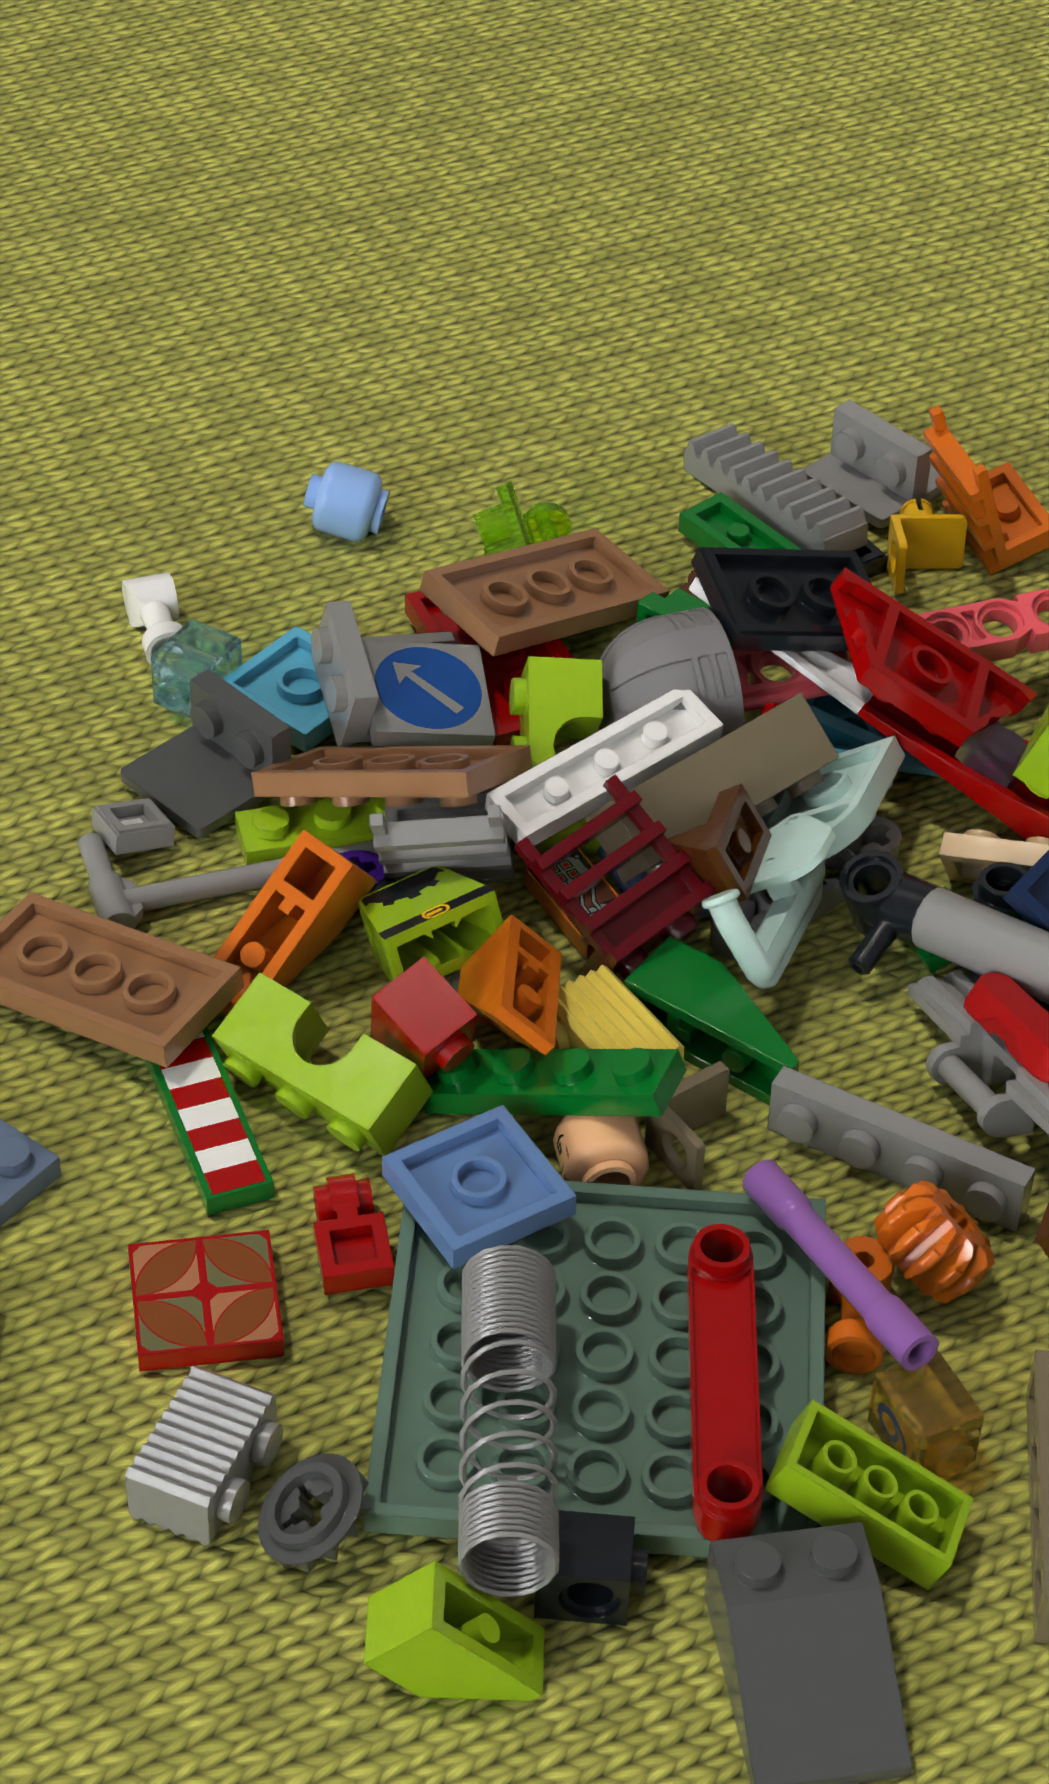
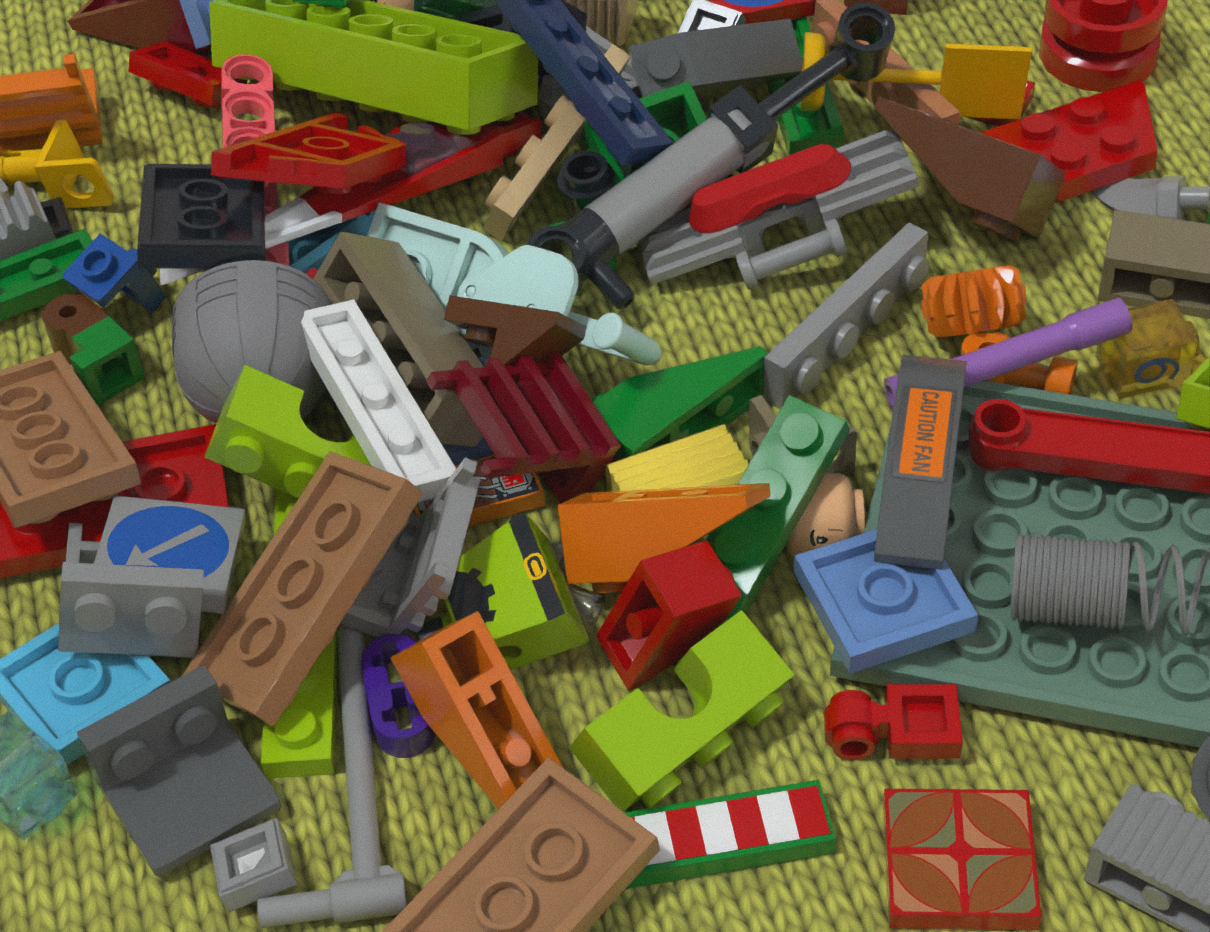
camera: 75 degrees left, 5 degrees up
(649, 1165) = (920, 462): none -> dark grey slope

